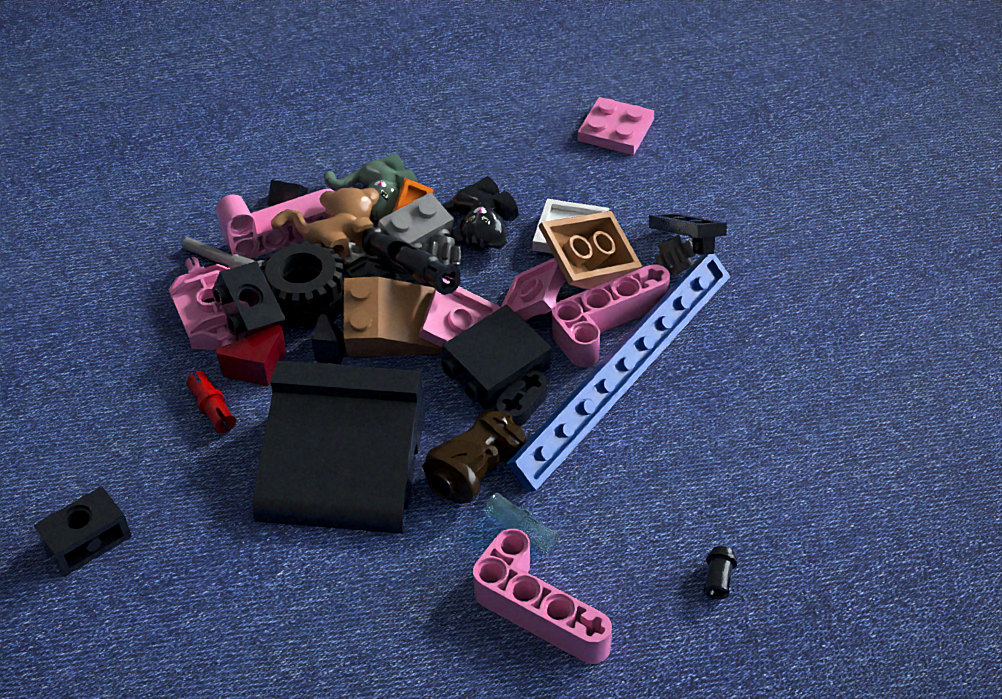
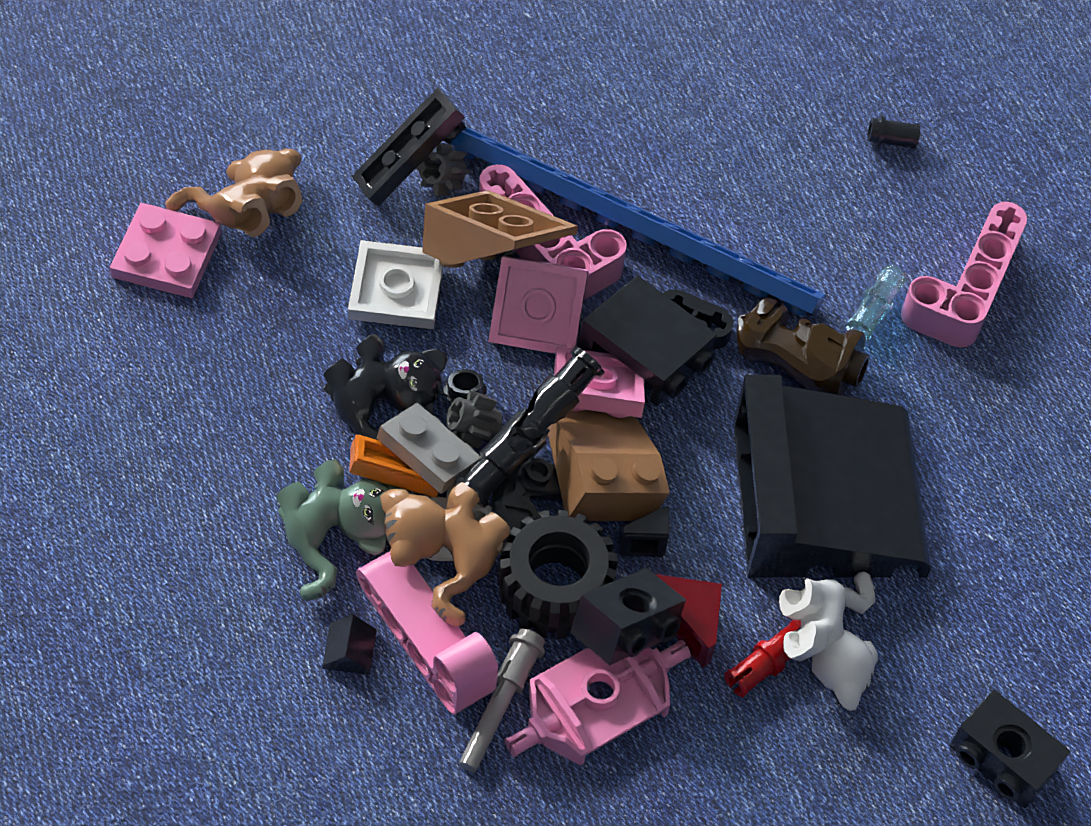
camera: 105 degrees left, 10 degrees up
(189, 437) = (838, 656): none -> white animal
(473, 257) = (461, 382): none -> black plate
(667, 163) = (261, 188): none -> medium nougat animal

